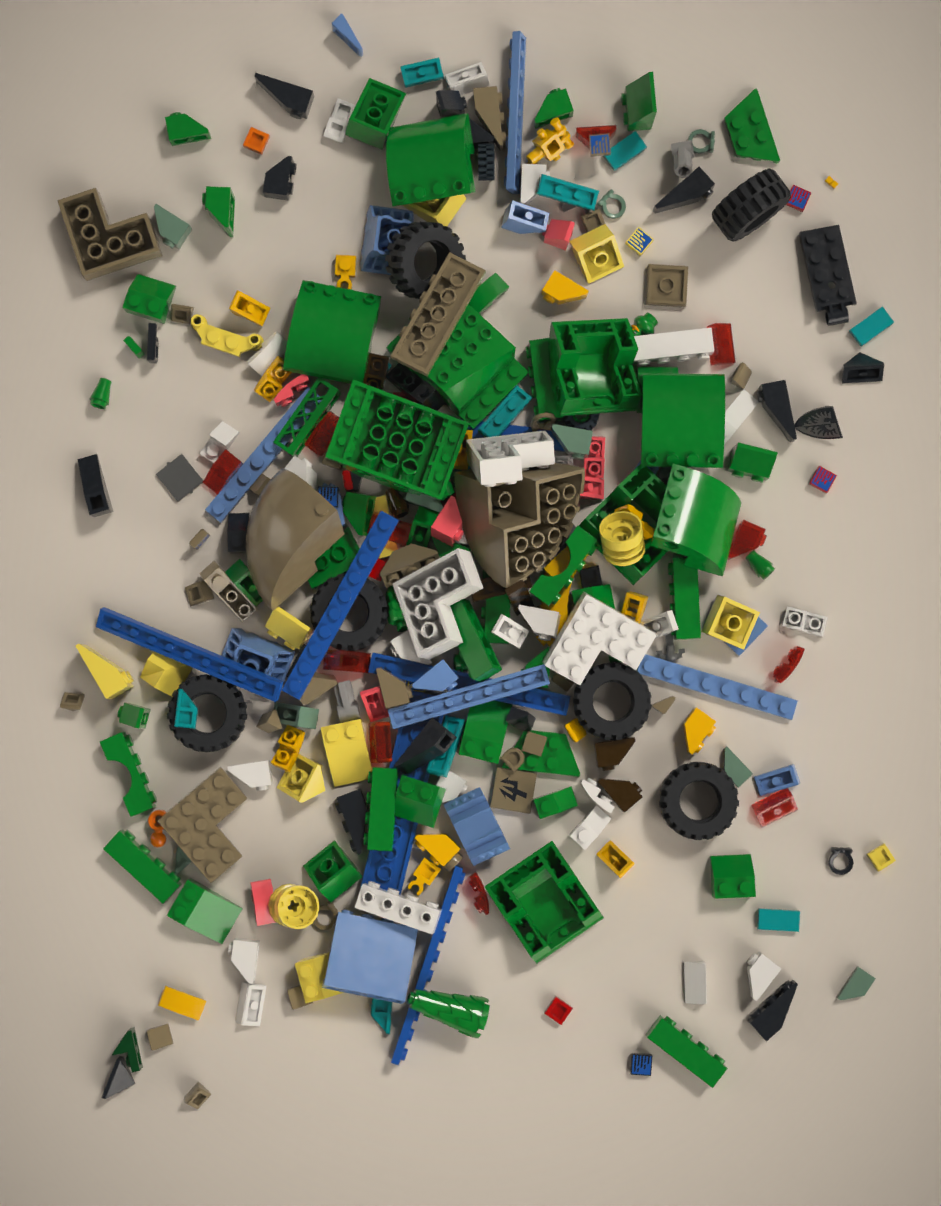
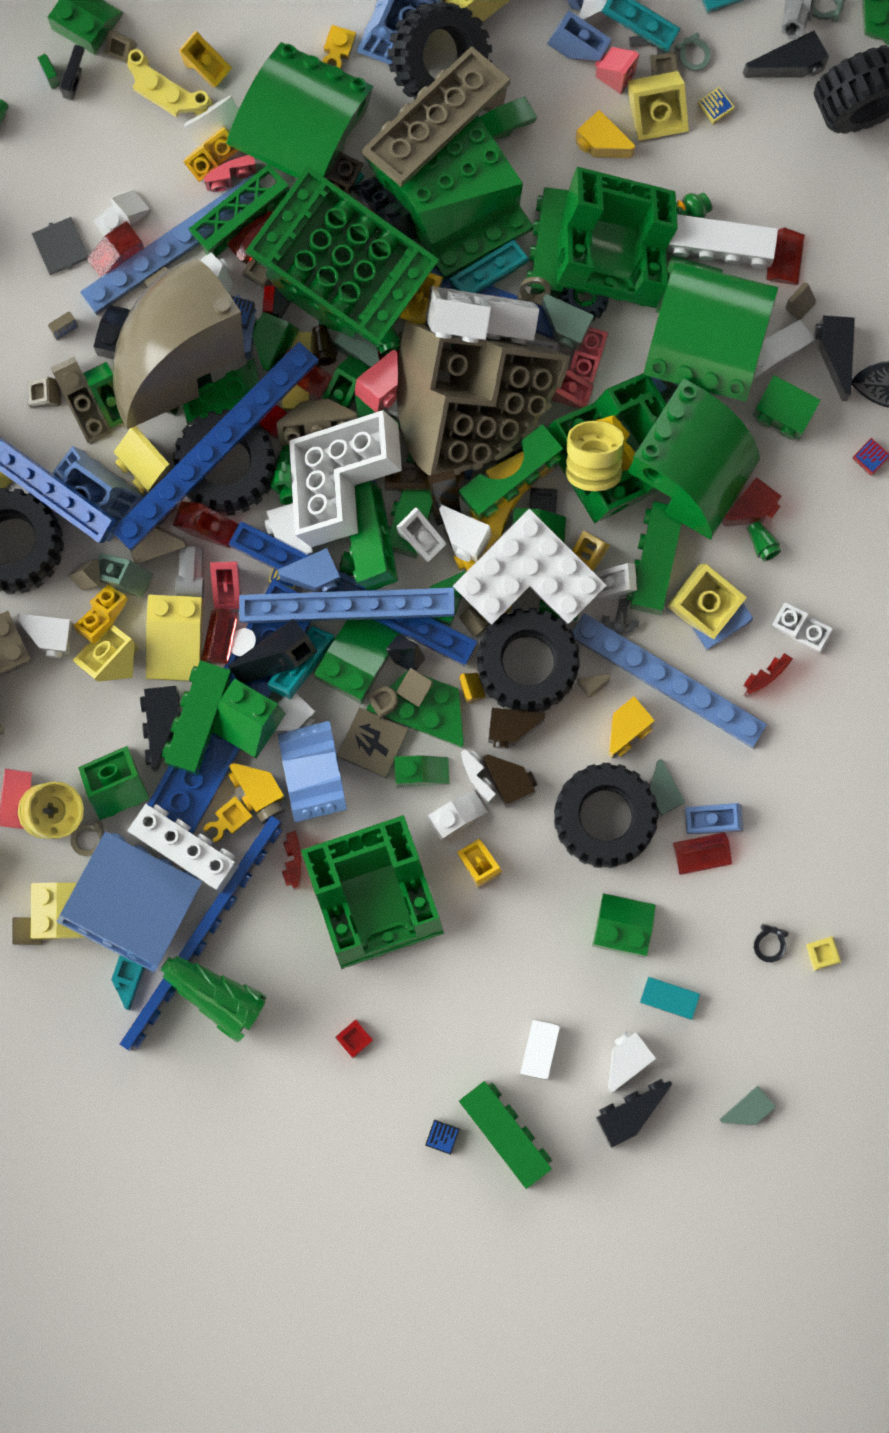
camera: 15 degrees right, 5 degrees down
(393, 689) = (254, 571): dark tan slope -> none
(399, 742) = (242, 641): none -> white sticker
(667, 285) = (736, 168): dark tan tile -> none

